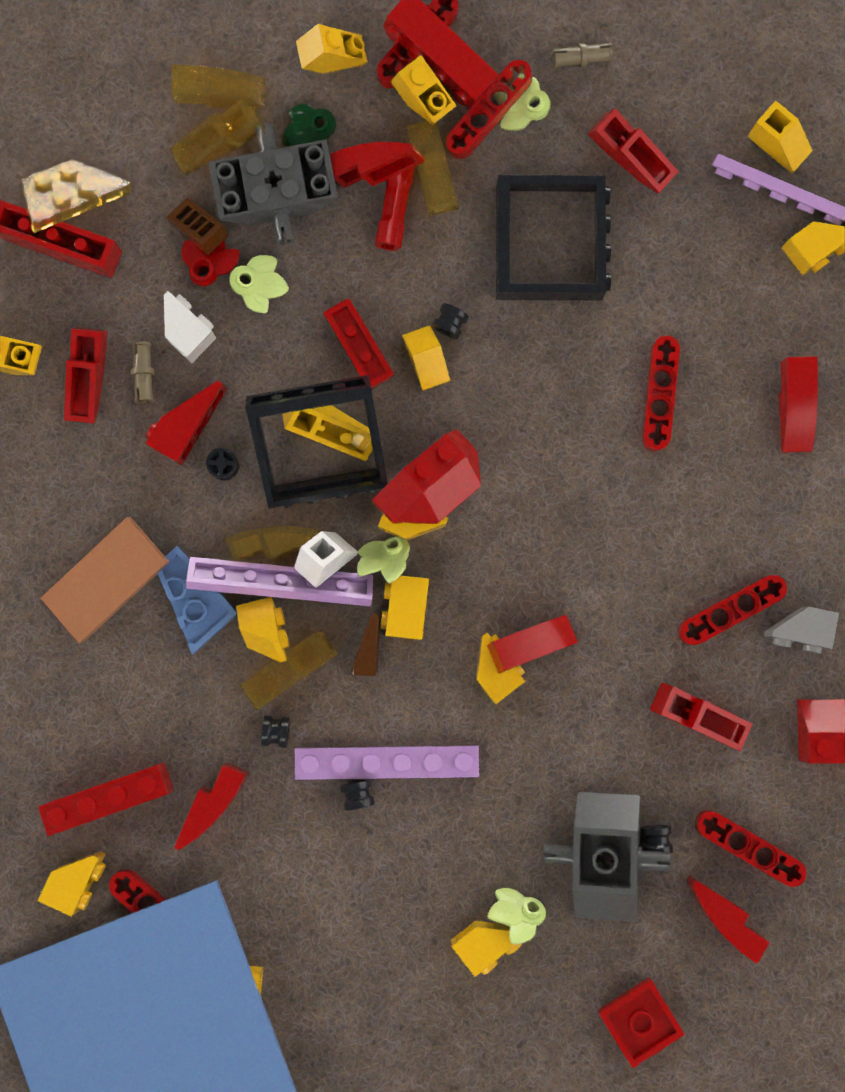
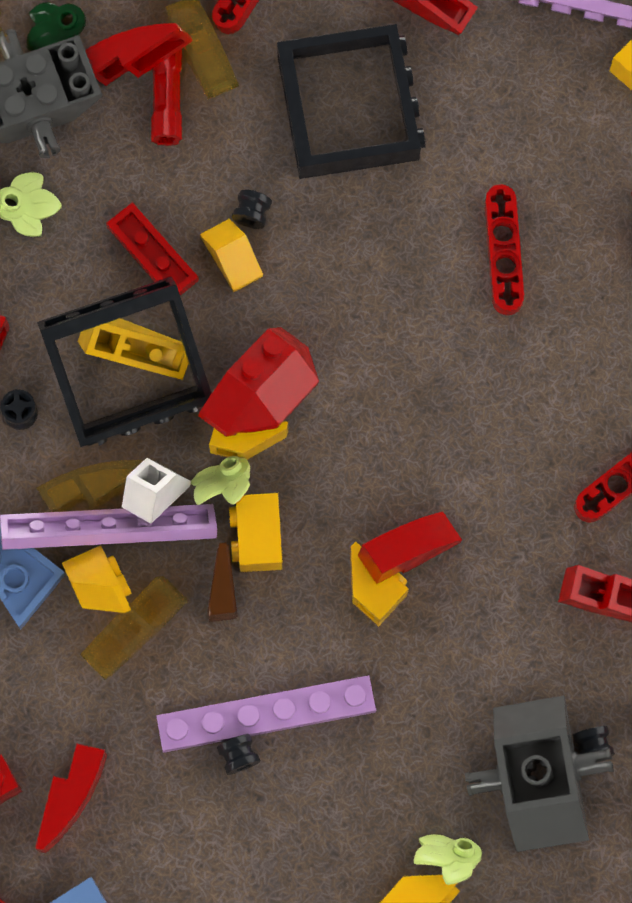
camera: 10 degrees left, 10 degrees down
(275, 731) = (131, 698): black wheel -> none

